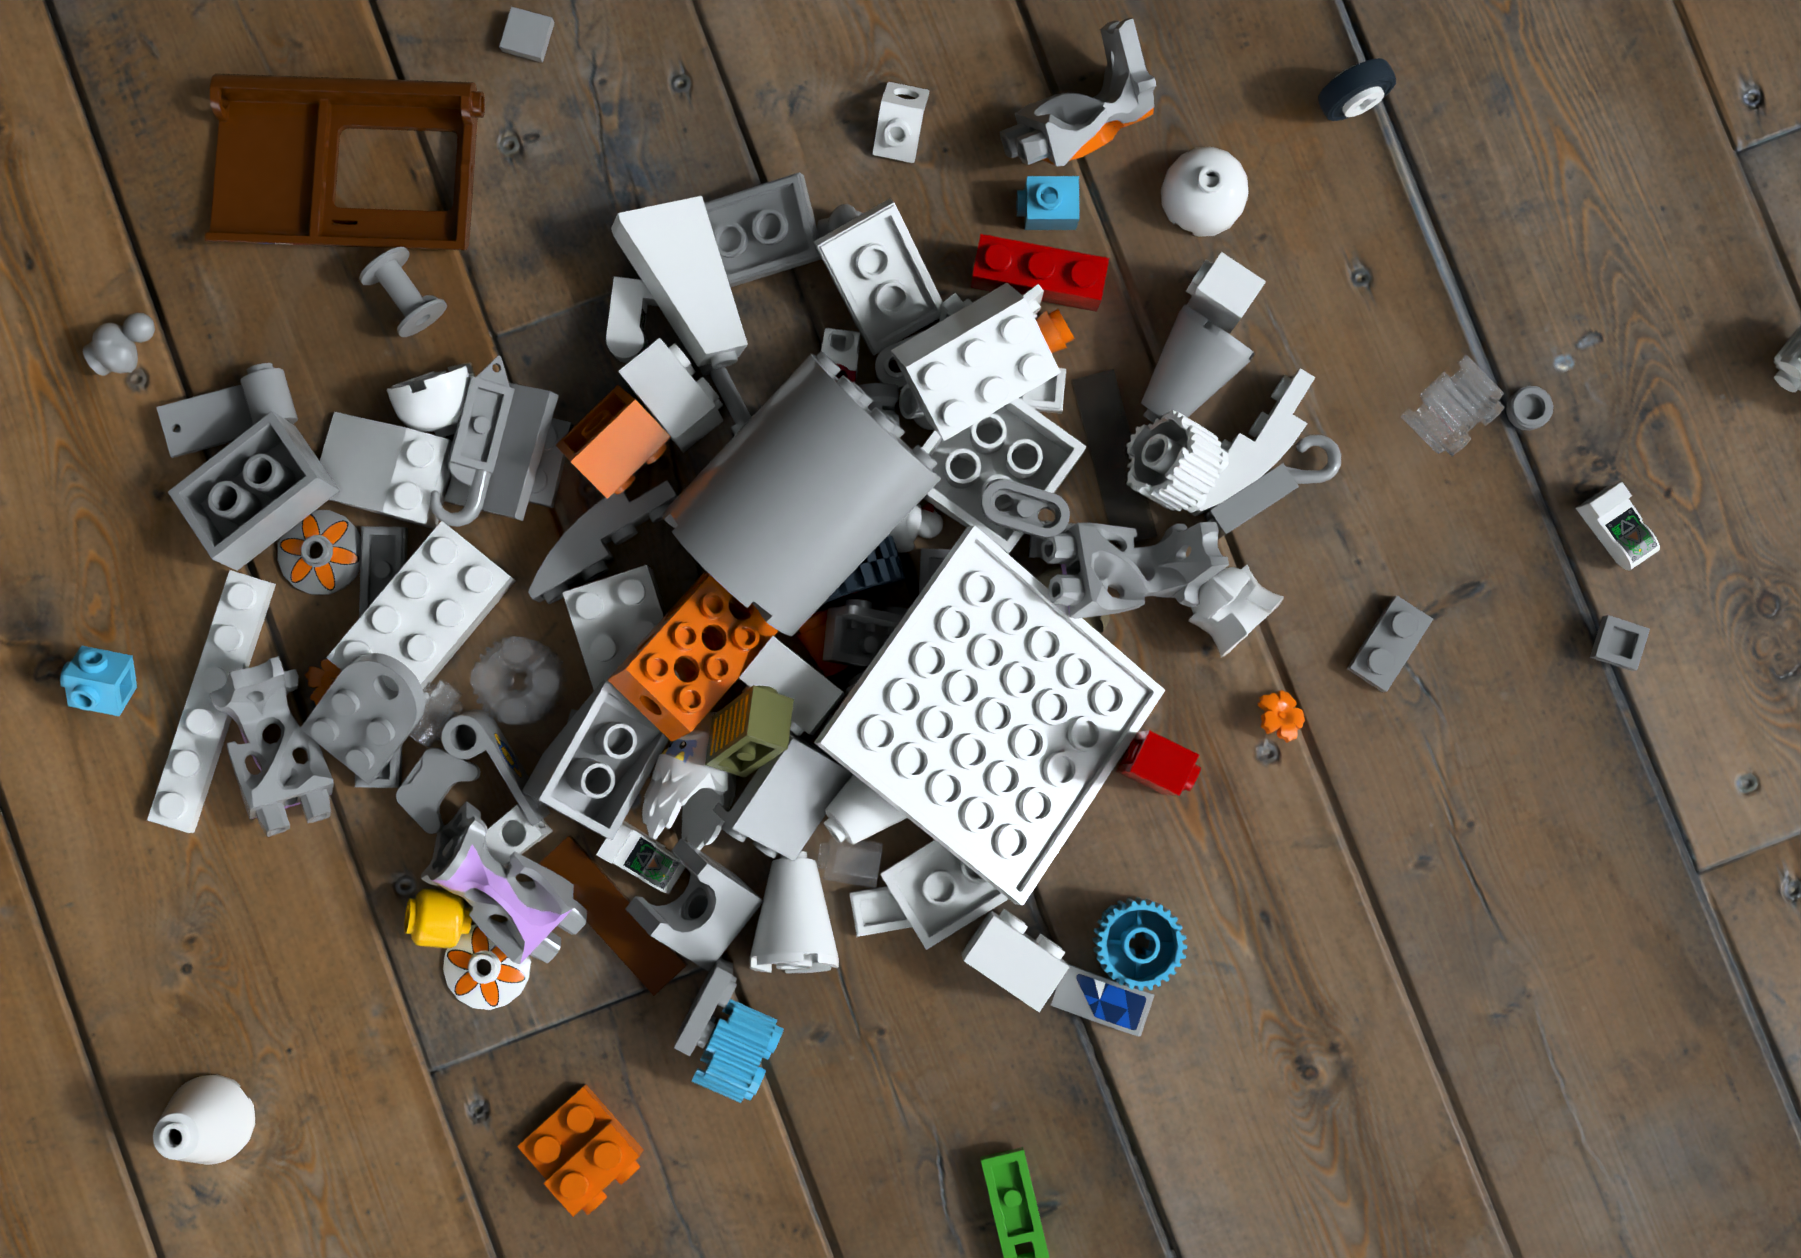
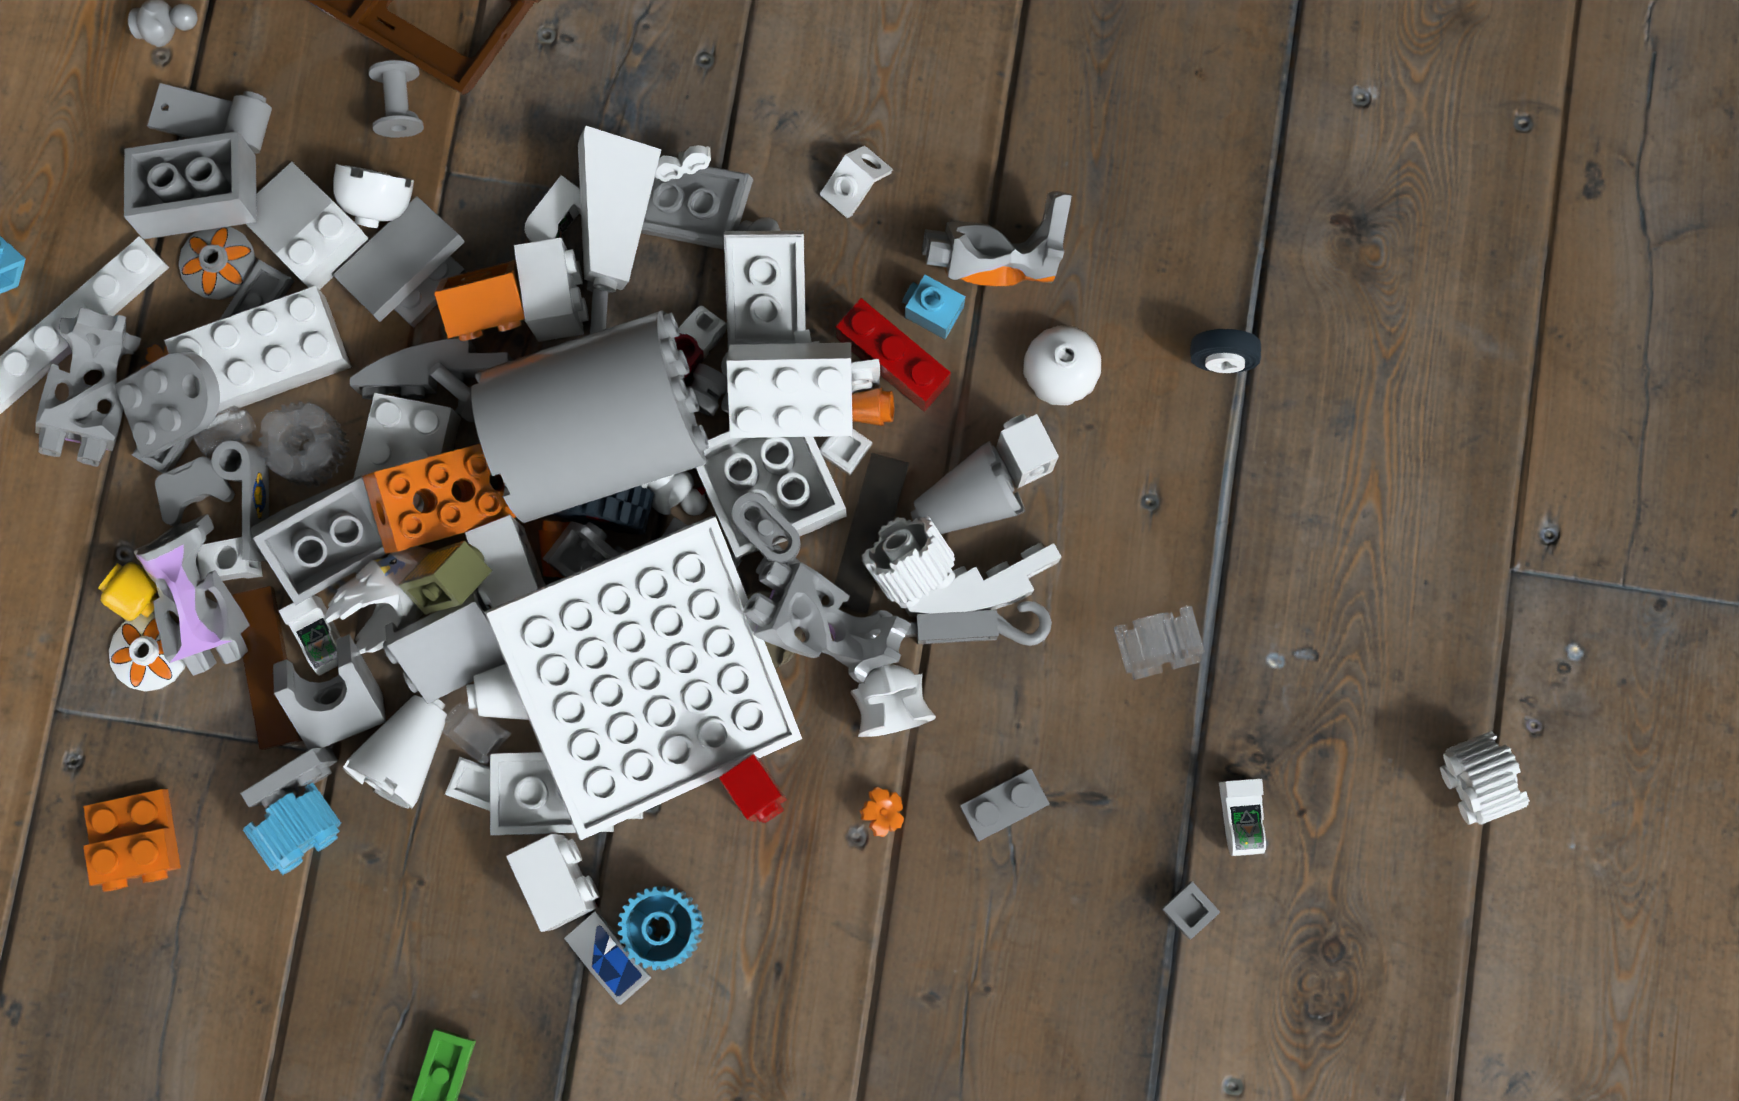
camera: 30 degrees right, 5 degrees down
(477, 441) = (379, 241): light grey plate -> none
(647, 544) = (457, 388): none -> light grey bar
(734, 193) = (687, 162): none -> white piece
(1529, 408) = (1225, 680): light grey tile -> none

